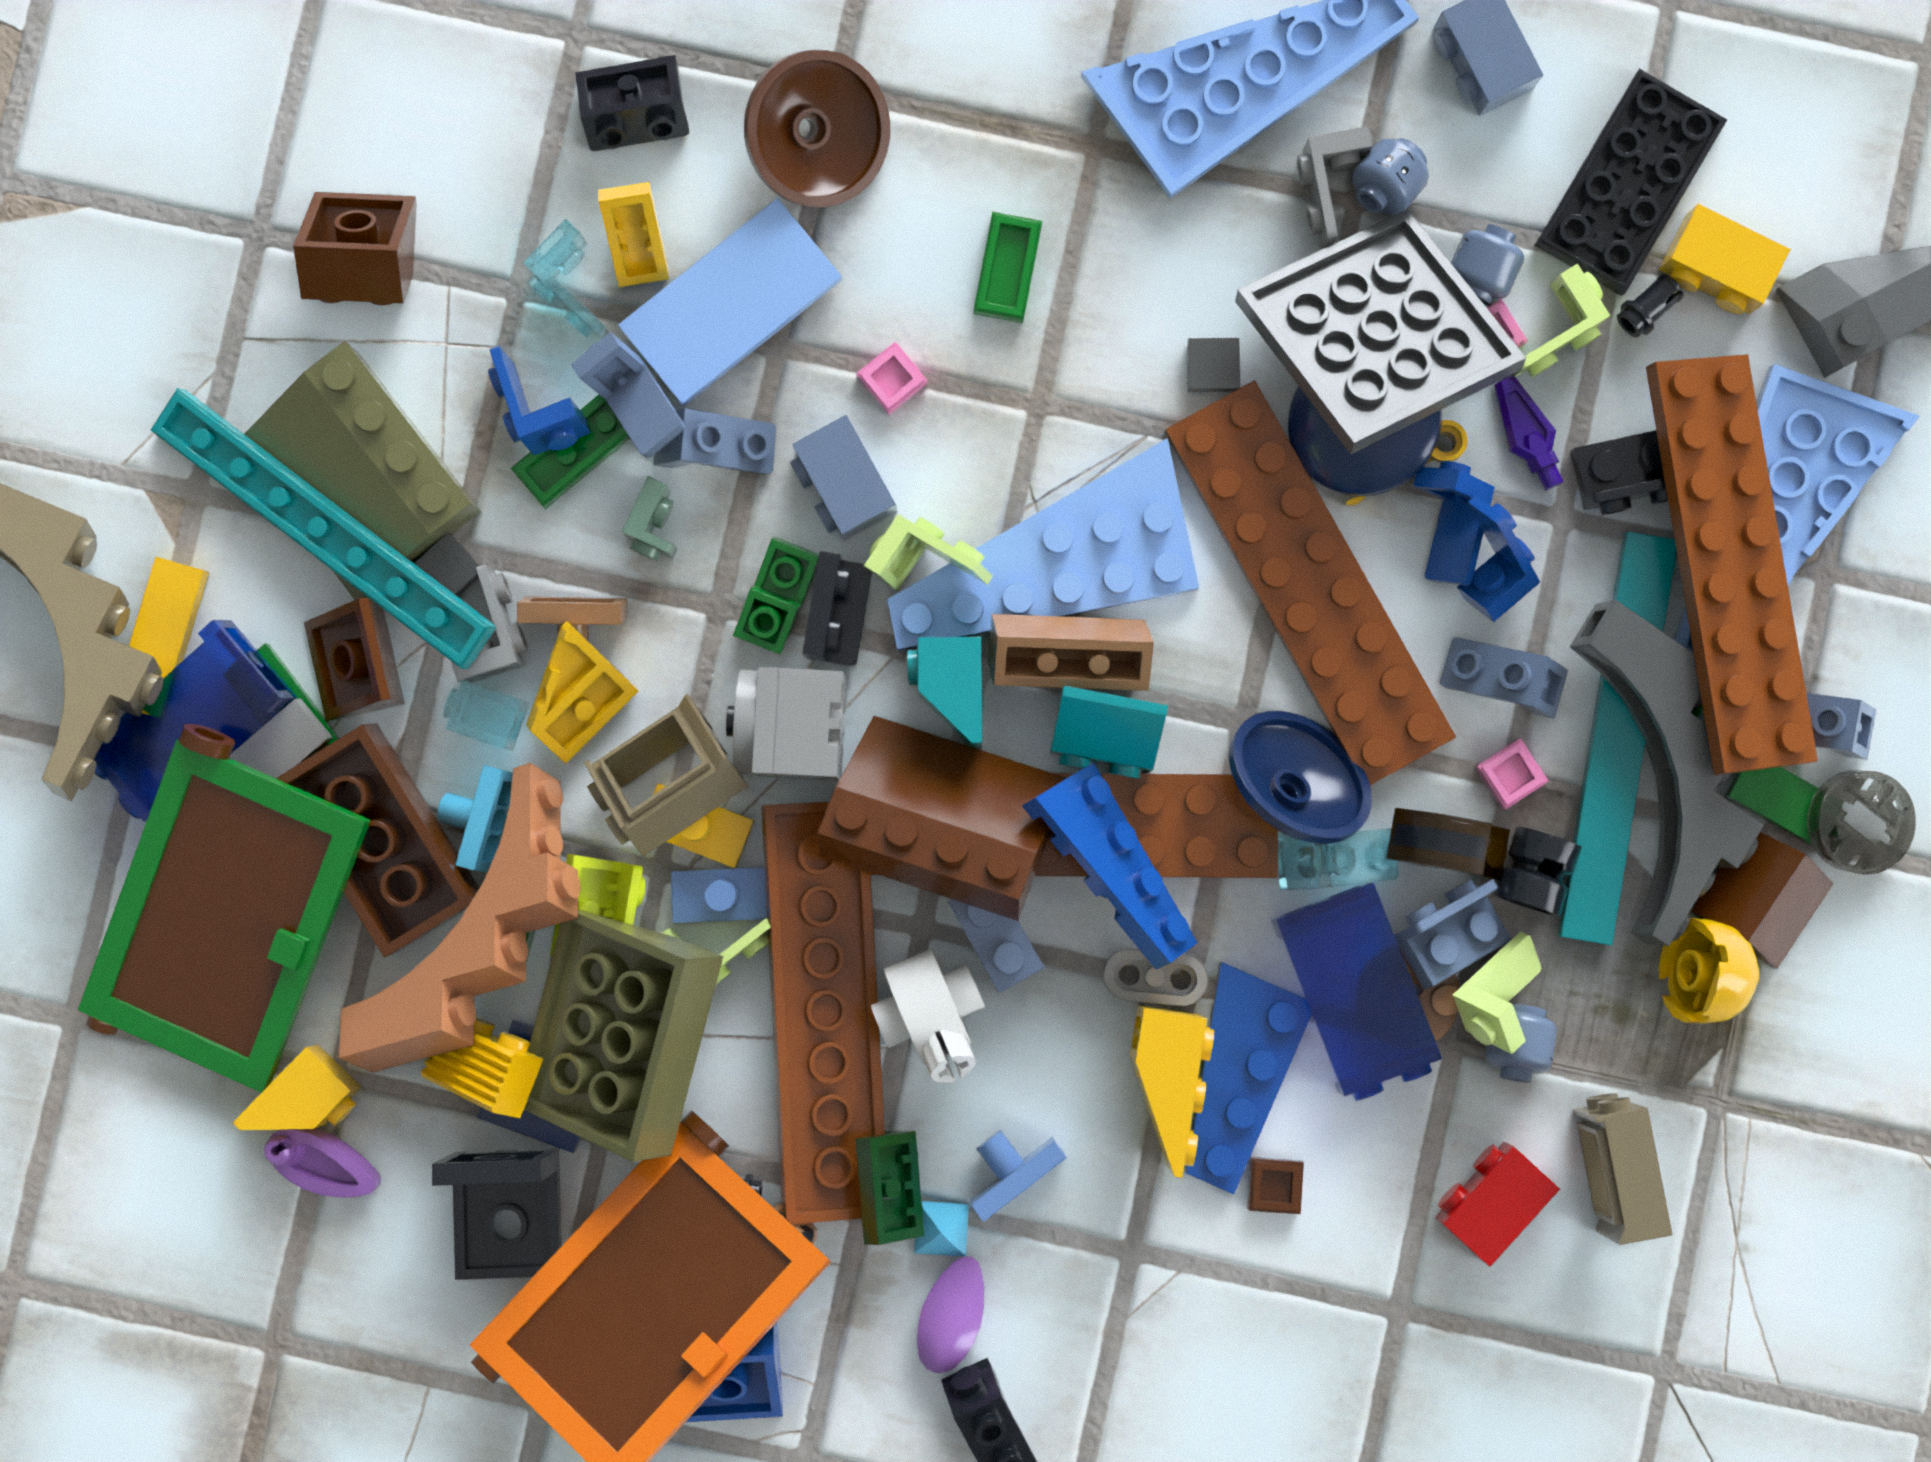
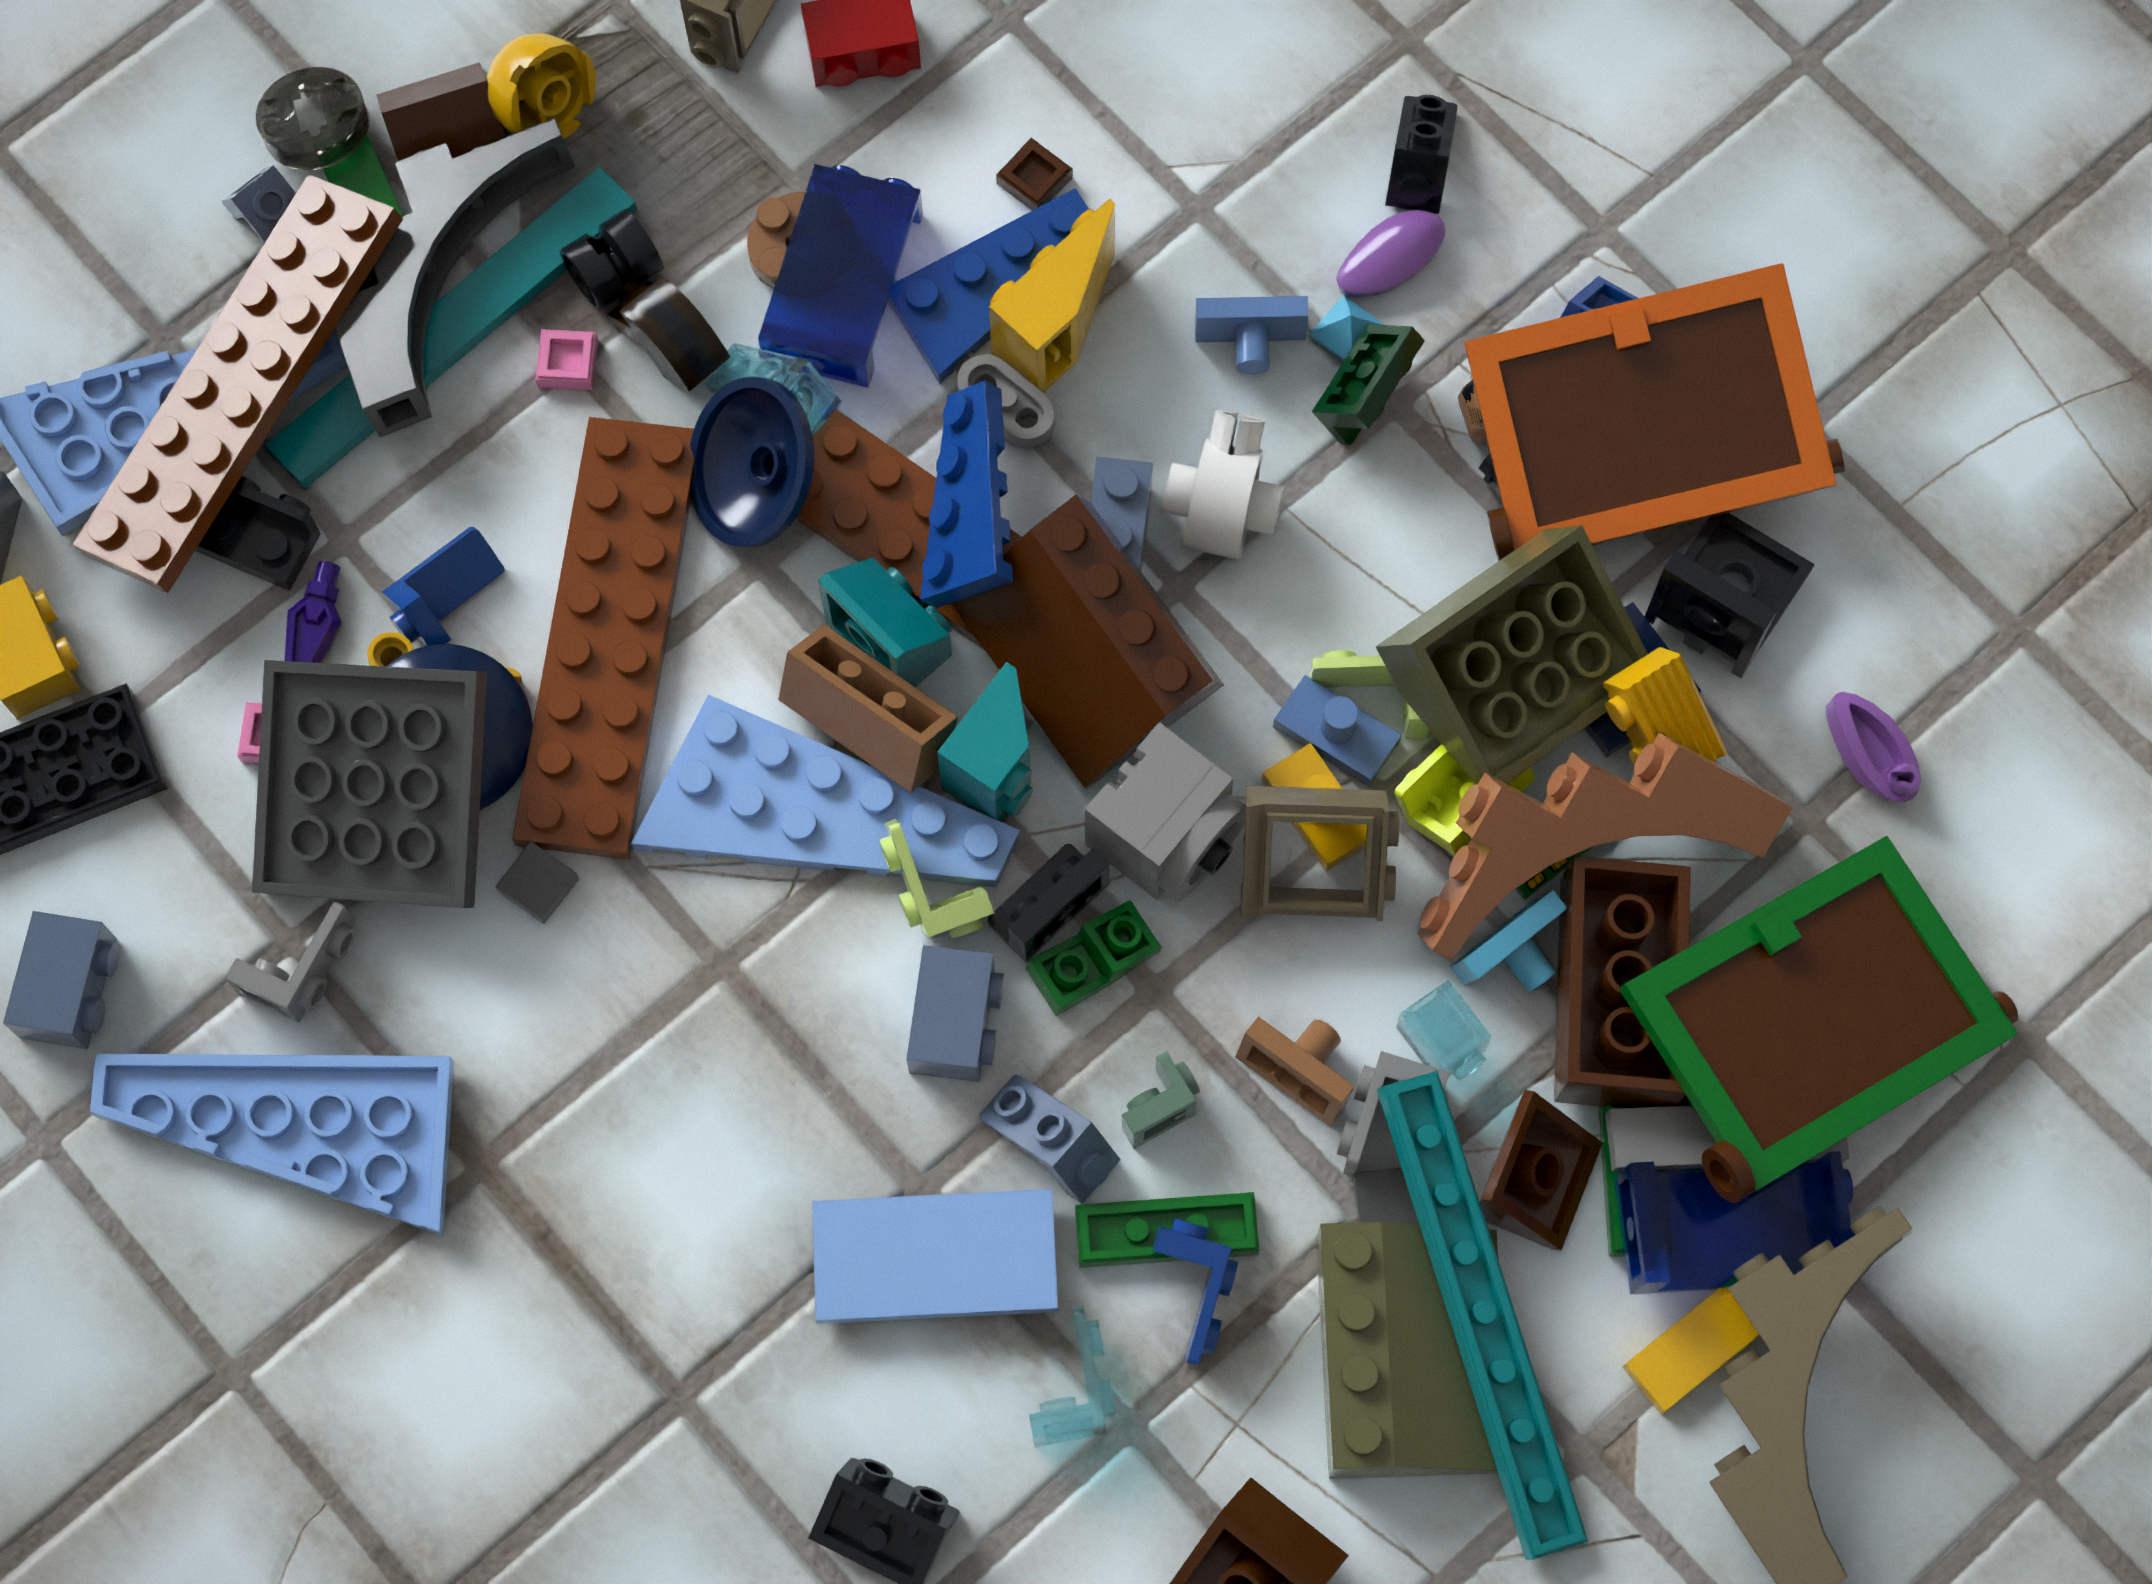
camera: 145 degrees left, 15 degrees down
(303, 1095) = (1852, 810): yellow slope -> none
(576, 695) = (1346, 989): yellow wing -> none
(631, 393) = (1093, 1215): sand blue bracket -> none
(633, 234) = (977, 1380): yellow tile -> none
(820, 1015) = (1322, 566): dark orange plate -> none
(846, 128) = (728, 1352): reddish brown dish -> none
(892, 378) = (838, 1081): bright pink tile -> none
(1007, 267) = (651, 1107): green tile -> none
(1390, 176) = (242, 927): sand blue head -> none
(1452, 936) = (725, 259): sand blue bracket -> none
(1486, 995) = (752, 167): yellowish green bracket -> none
(1488, 262) = (222, 791): sand blue head -> none
(1505, 575) = (434, 517): blue bracket -> none
(1505, 675) = (509, 439): sand blue bracket -> none
(1534, 1054) = (738, 142): sand blue head -> none
(1581, 299) = (169, 703): yellowish green bracket -> none
(1640, 314) = (116, 656): black pin -> none

